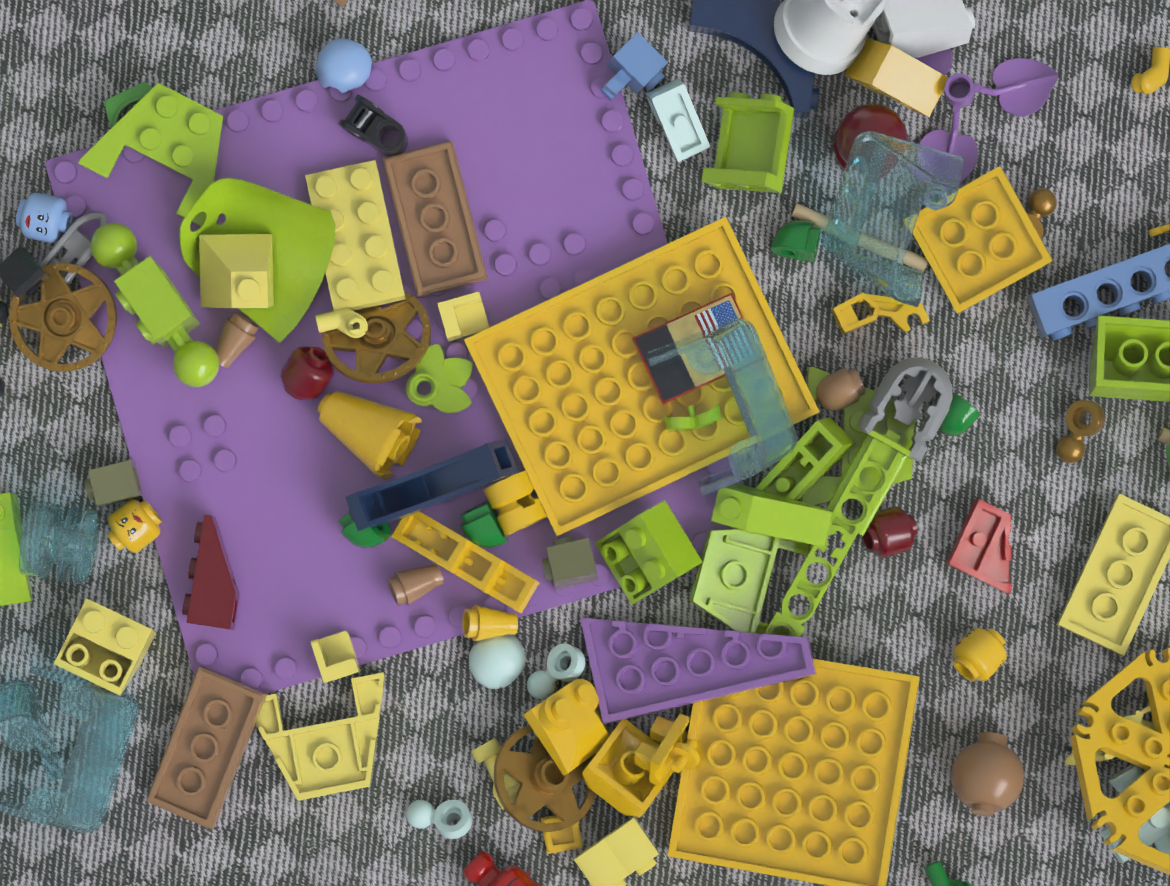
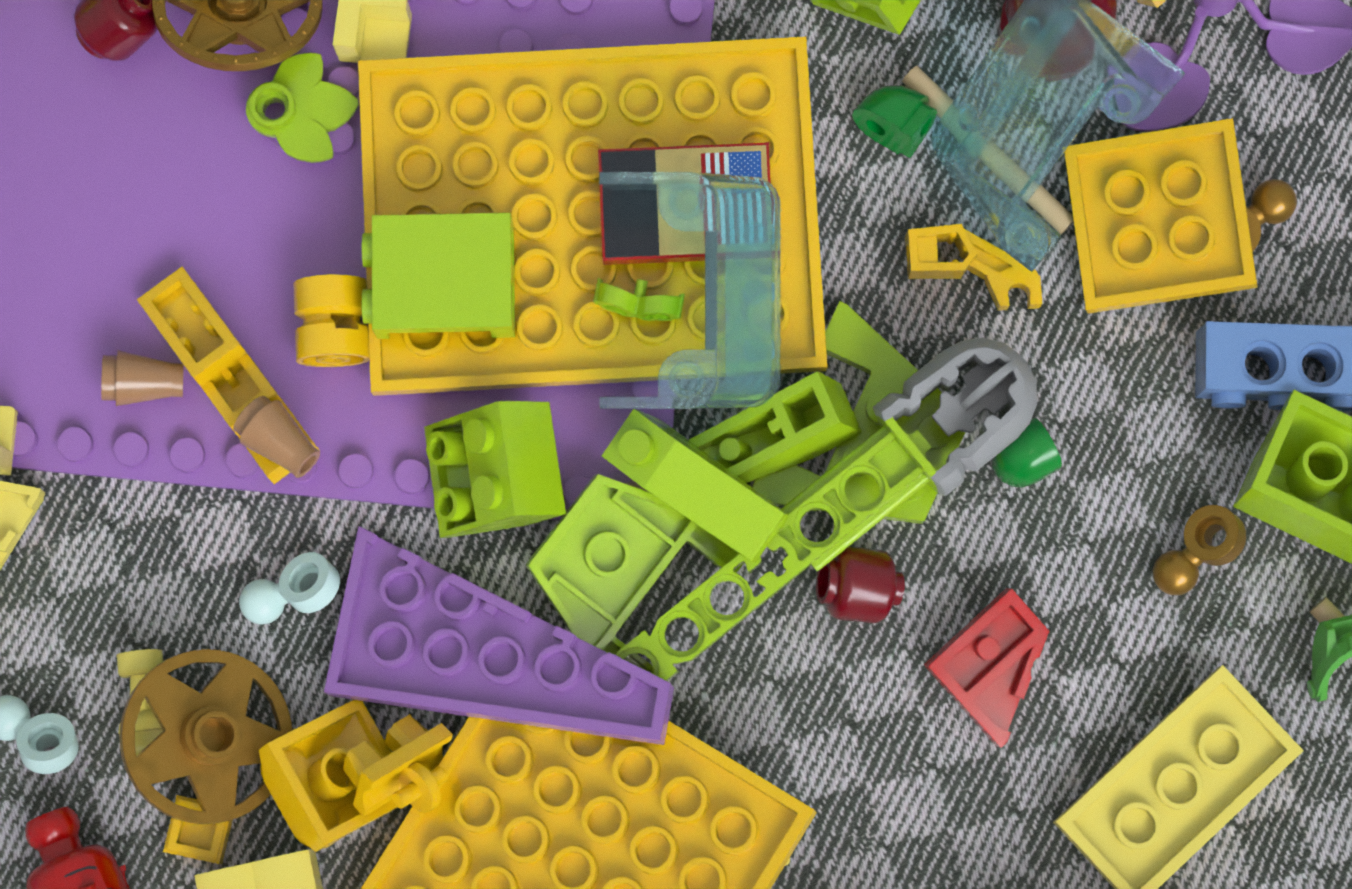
camera: 25 degrees right, 5 degrees down
(366, 538) = (104, 267): green piece -> none
(370, 430) = (172, 138): yellow cone -> none
(431, 485) = (224, 245): dark blue arch -> none
(482, 526) = (271, 337): green piece -> none
(488, 623) = (219, 478): yellow cone -> none
(497, 661) = (213, 539): light aqua hair -> none
(514, 586) = (275, 435): none -> medium nougat cone
(569, 724) = (272, 672): yellow slope -> none
(570, 562) = (375, 438): olive brick -> none
(571, 452) = (440, 274): none -> lime panel
(840, 389) = (871, 349): medium nougat piece -> none
(979, 654) = (920, 818): yellow head -> none

